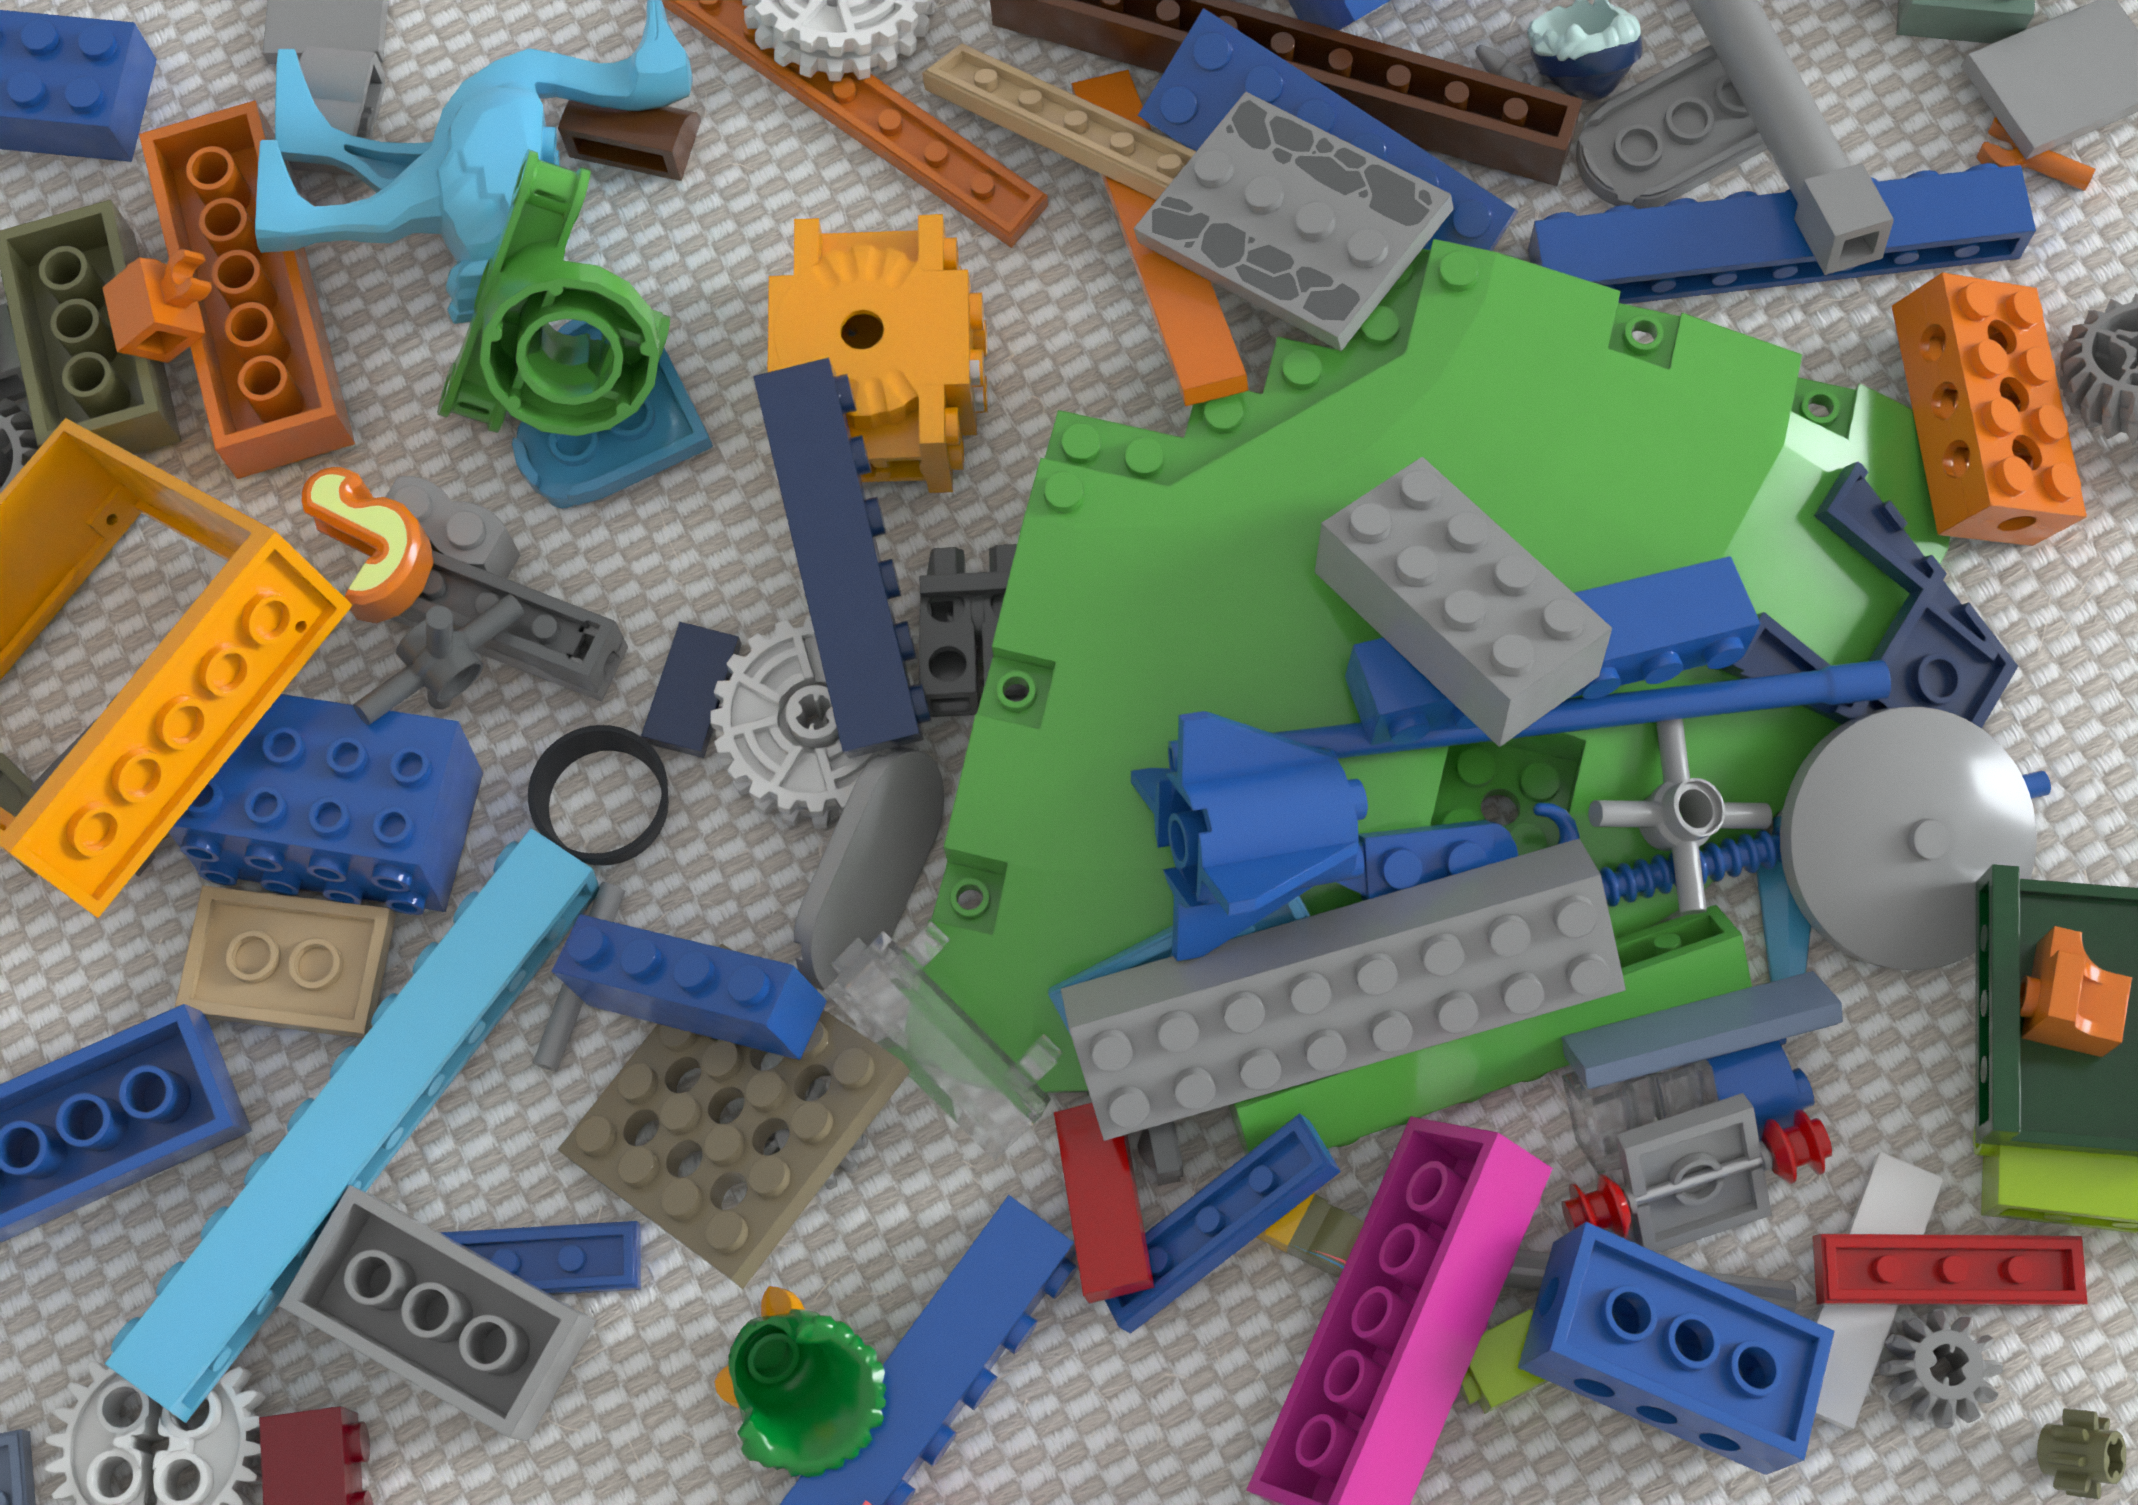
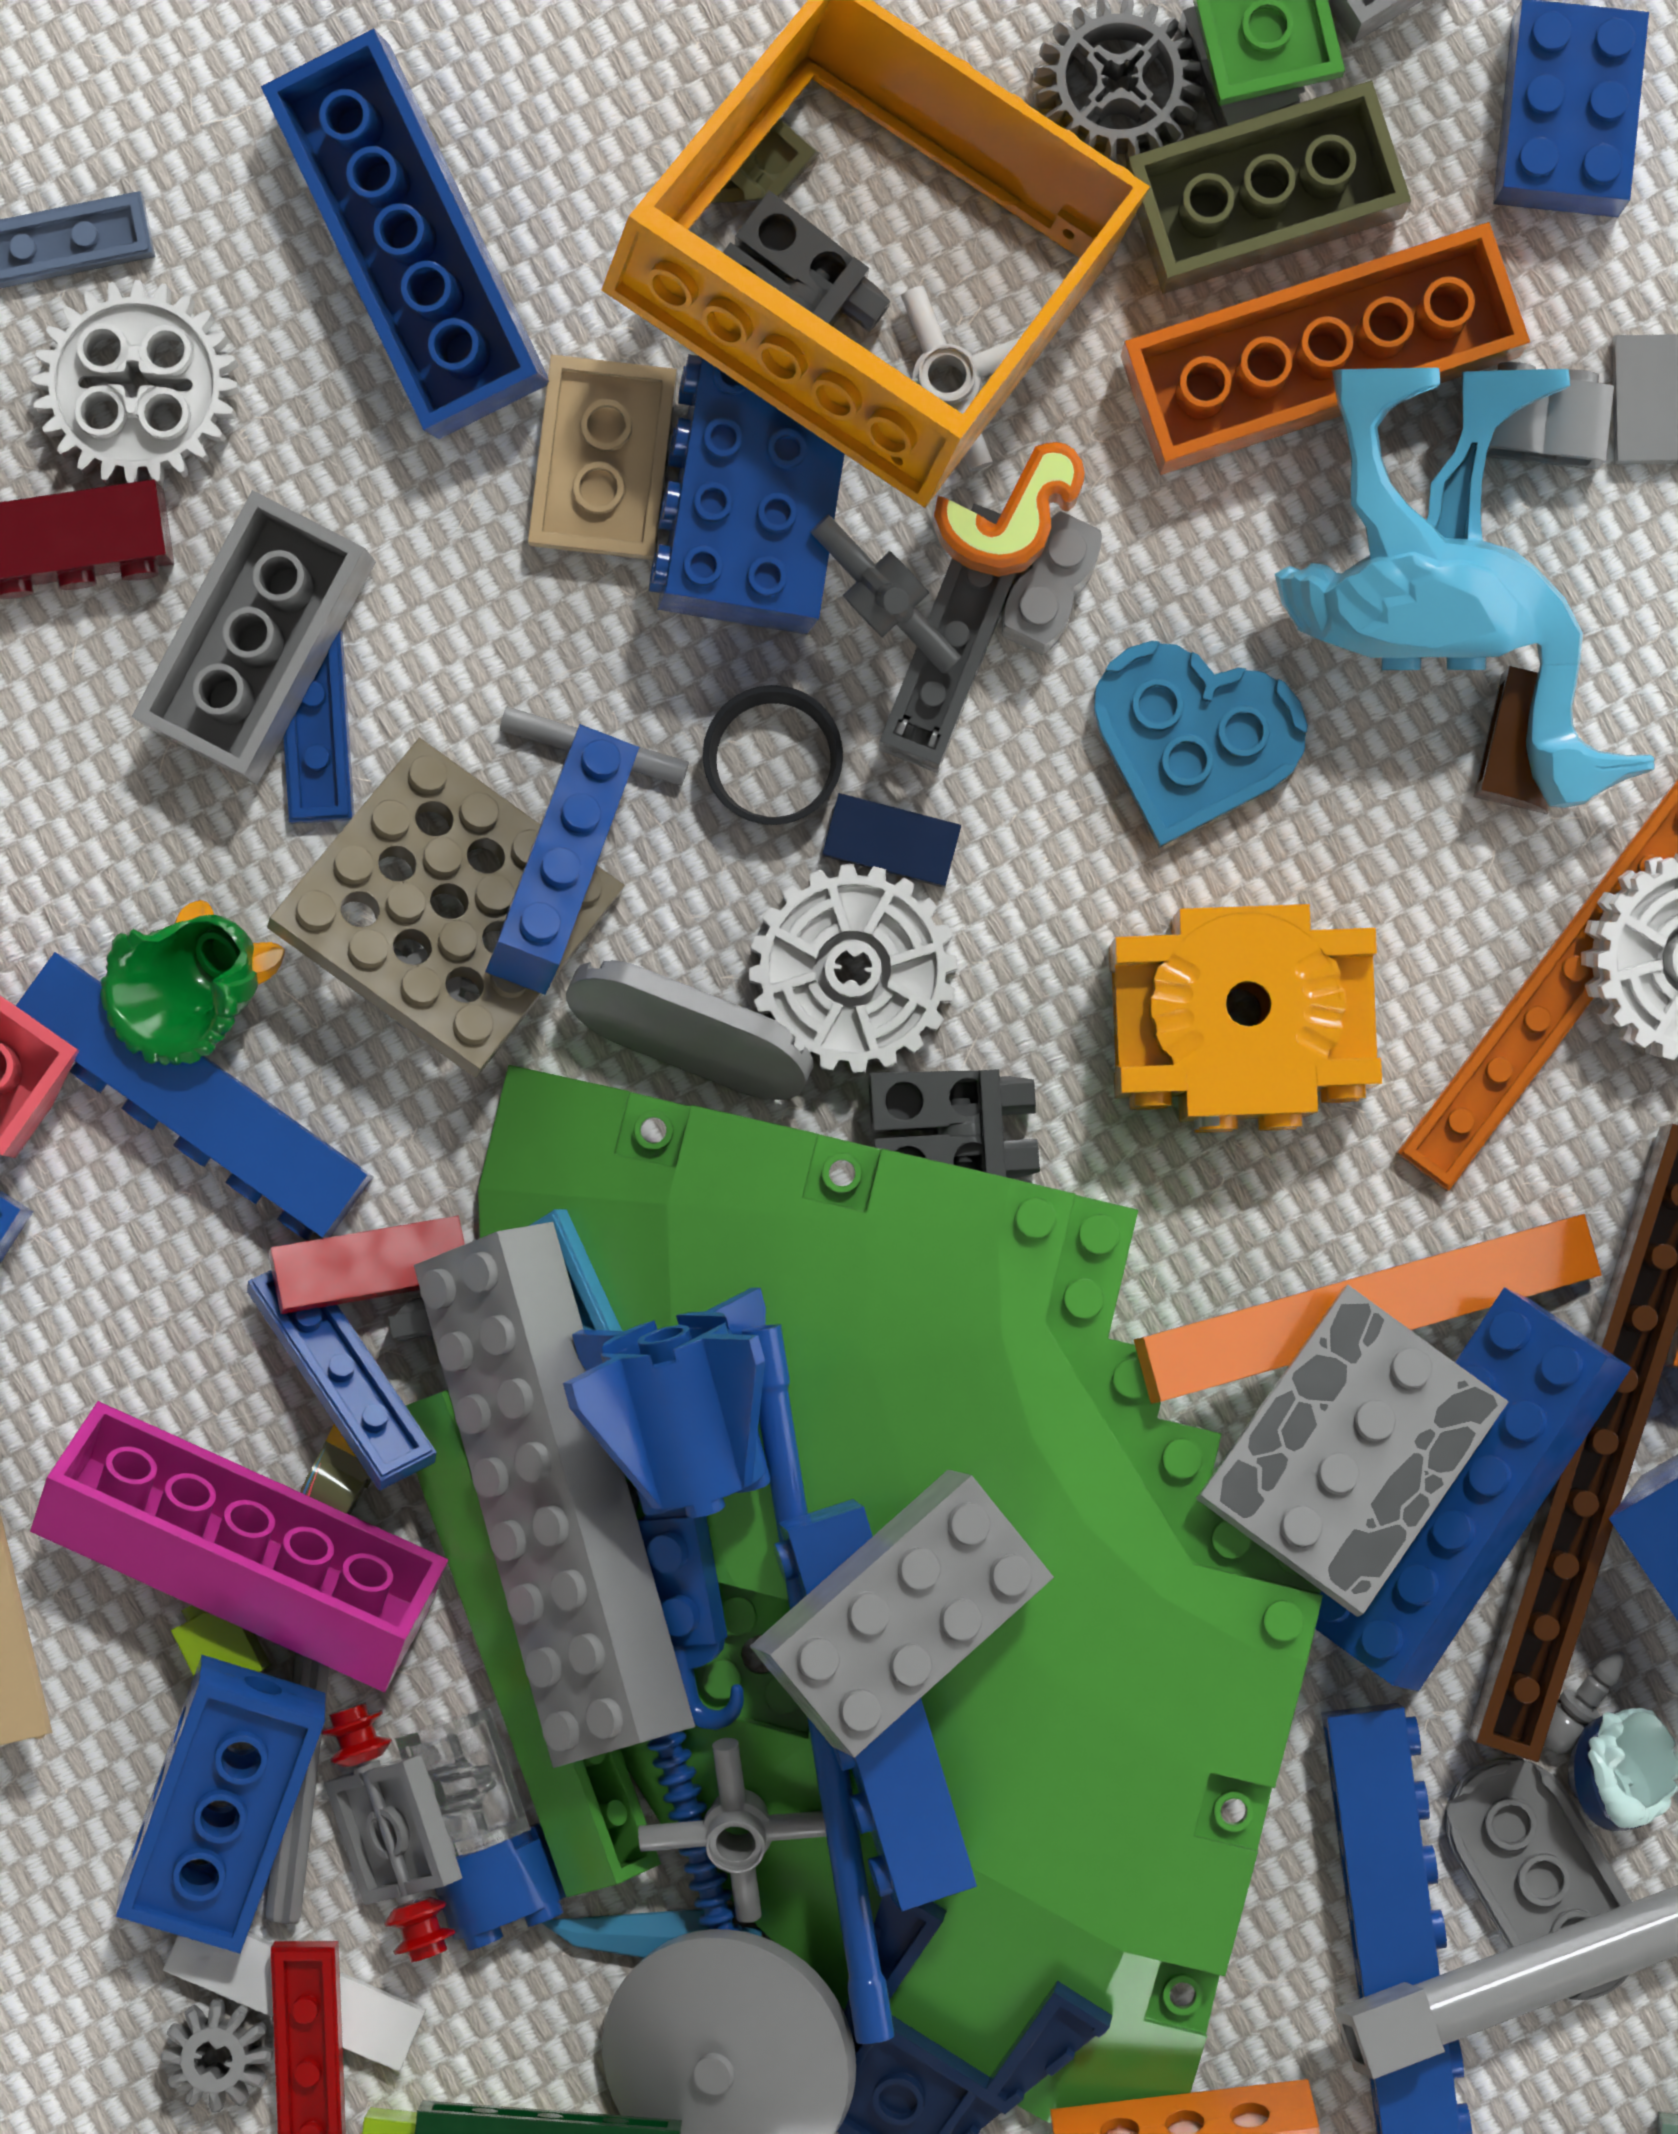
camera: 85 degrees right, 15 degrees up
(157, 306) = (1276, 266): orange brick -> none
(354, 1125) = (436, 547): medium azure brick -> none
(513, 353) = (1238, 680): bright green piece -> none
(840, 559) = (993, 991): dark blue brick -> none
(939, 1042) = (513, 1103): clear brick -> none
(1057, 120) = (1516, 1206): tan tile -> none
(1701, 1030) = (528, 1842): sand blue tile -> none

